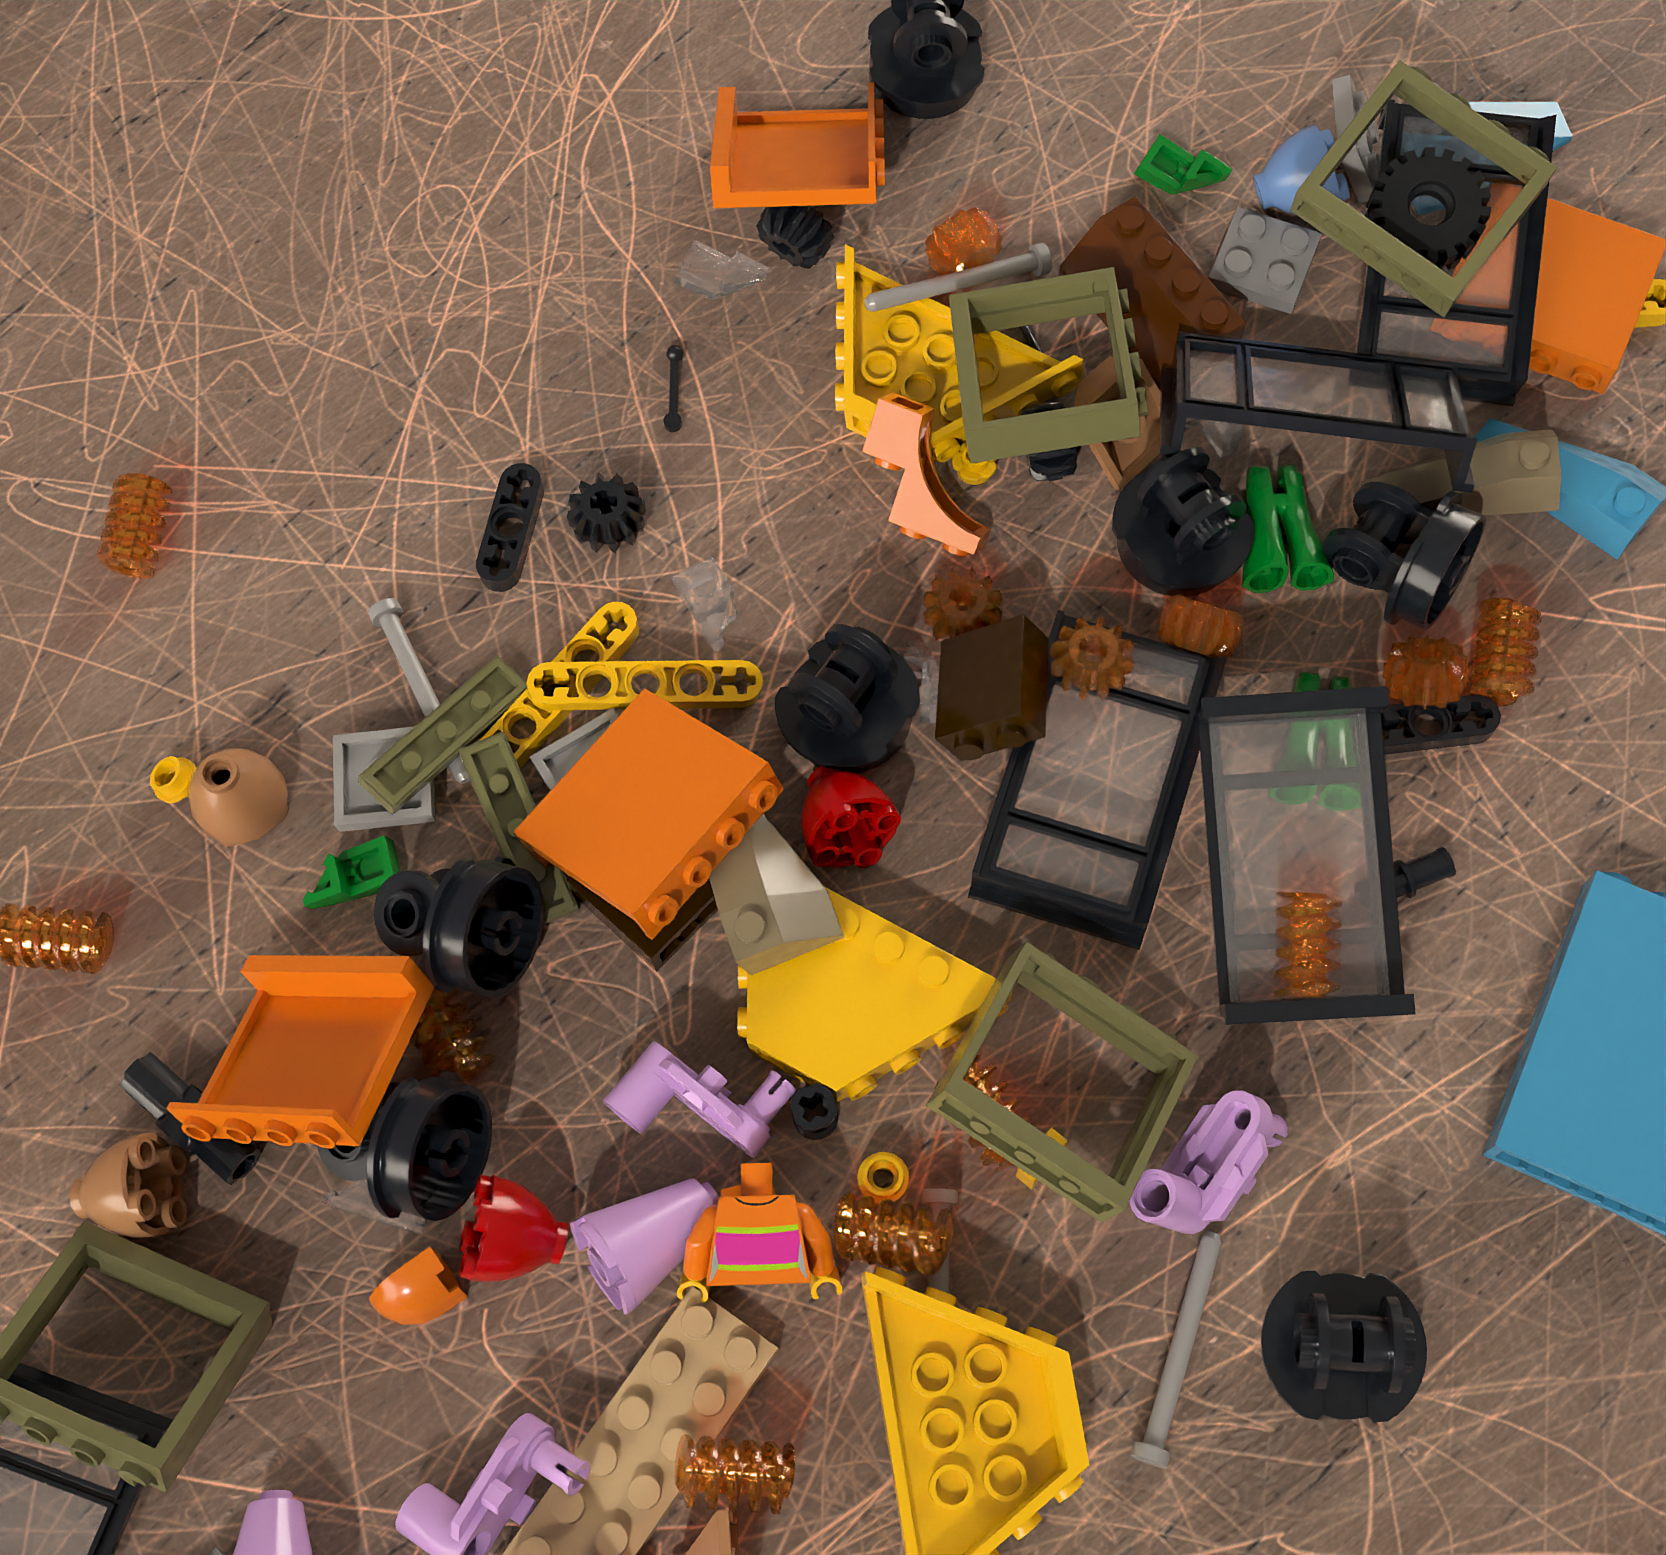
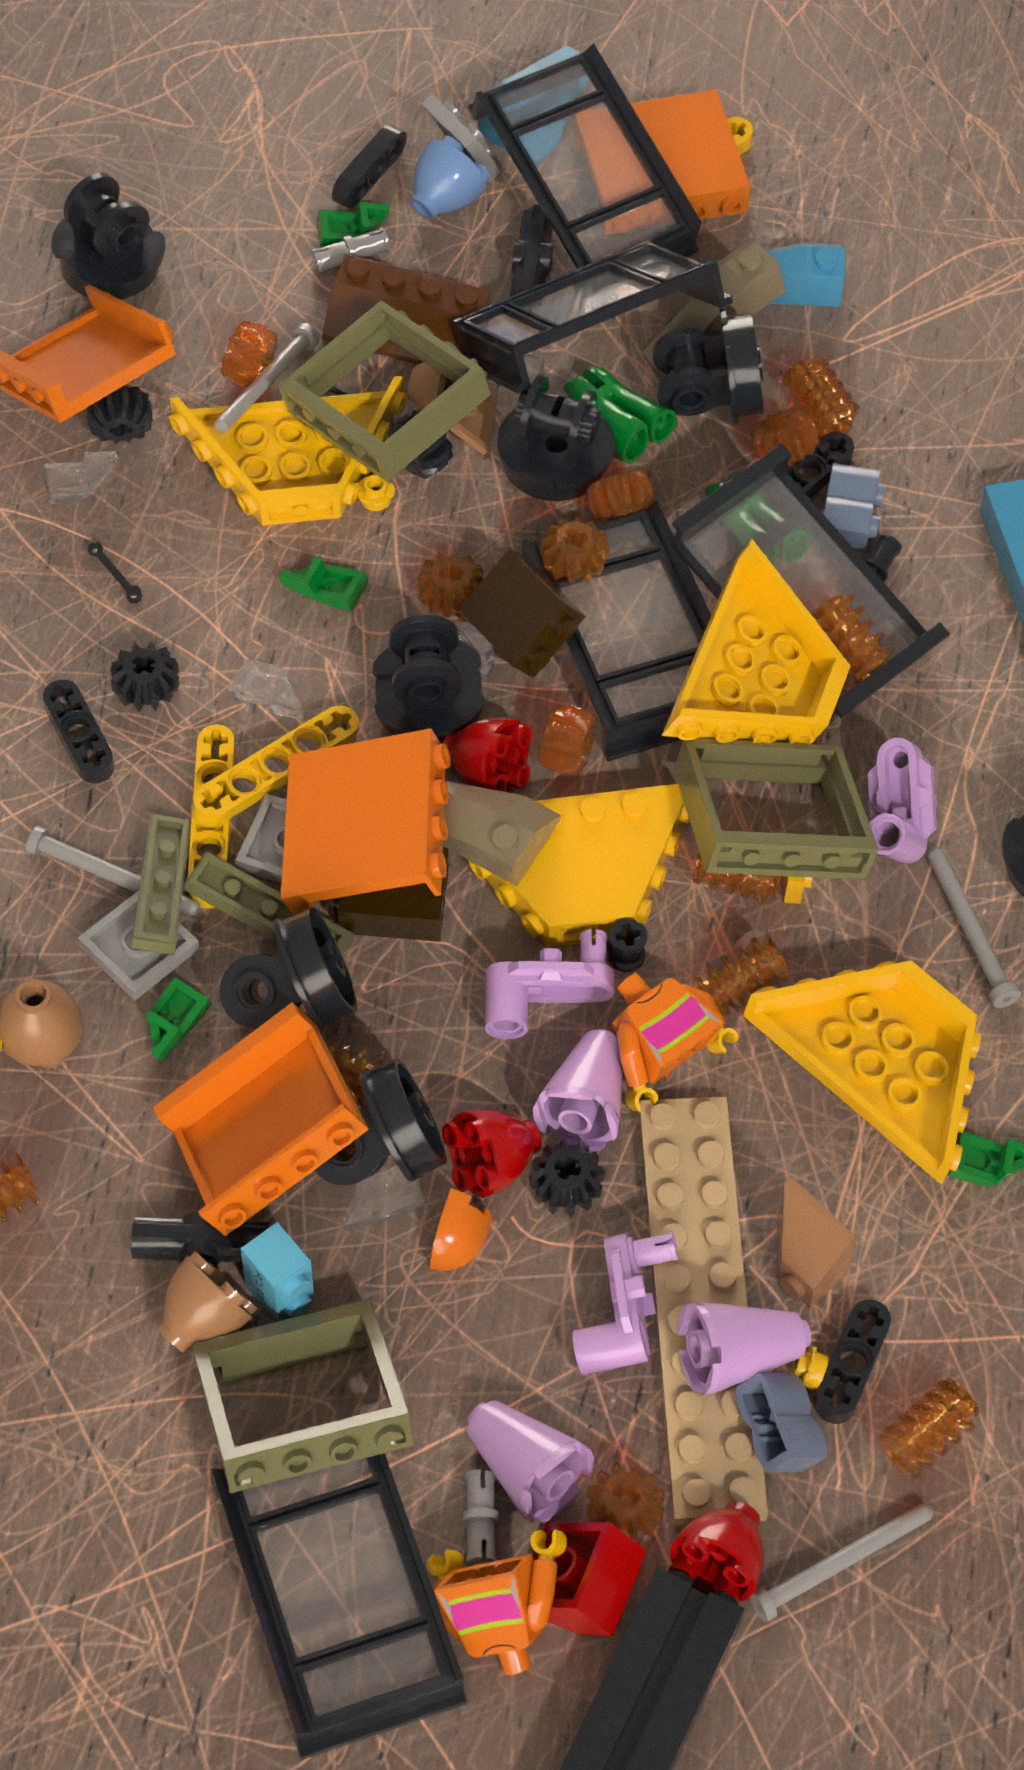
camera: 45 degrees left, 10 degrees down
(208, 1213) = (278, 1273): none -> medium azure brick
(546, 1333) = (580, 1186): none -> black gear
(734, 1472) = (760, 1177): clear orange piece -> none
(853, 528) = (327, 584): none -> green slope
(883, 1162) = (700, 946): yellow plate -> none
(922, 507) = (324, 495): arch -> none
(932, 852) = (568, 739): none -> clear orange gear
(1157, 194) = (359, 246): none -> light grey pin
(1177, 917) = (760, 665): none -> yellow piece
(1245, 116) = (369, 166): none -> black beam
(1264, 260) = (460, 250): light grey plate -> none
(1326, 310) = (532, 251): none -> black piece
(1382, 249) = (550, 183): olive window -> none
(1438, 791) = (851, 501): none -> sand blue brick
(1440, 179) = (554, 172): black tyre -> none

